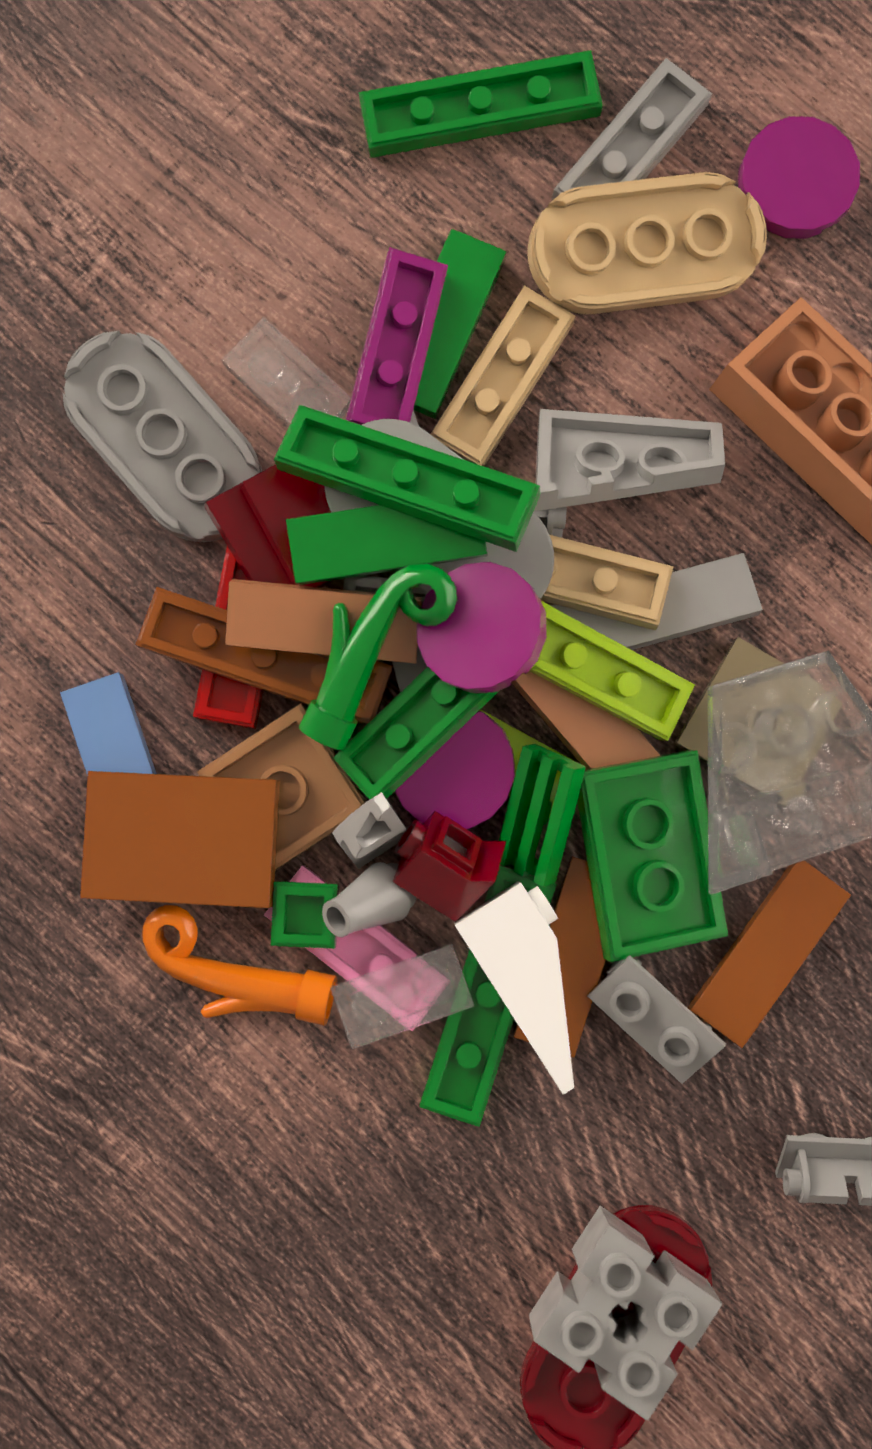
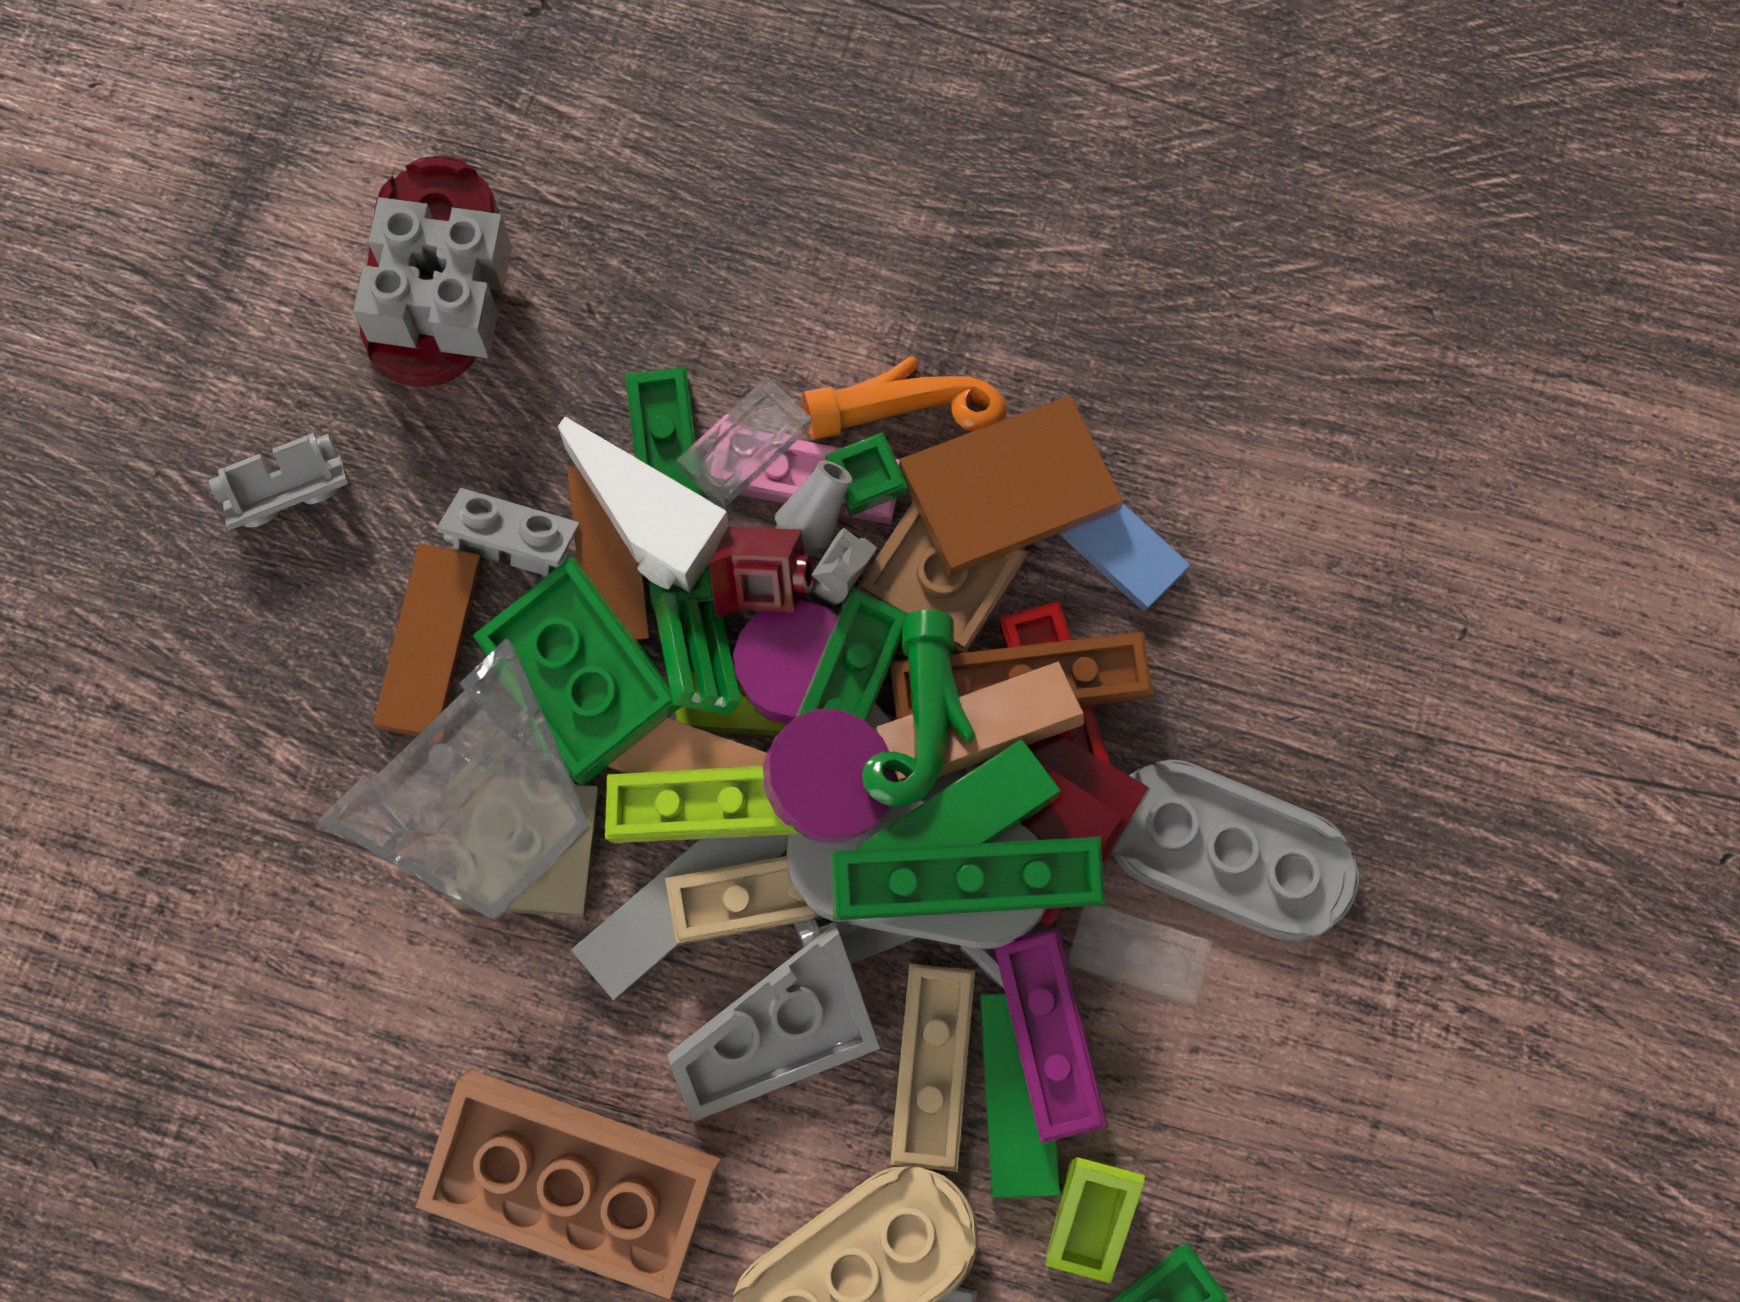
camera: 150 degrees right, 10 degrees down
(429, 200) = (1093, 1218): none -> lime slope

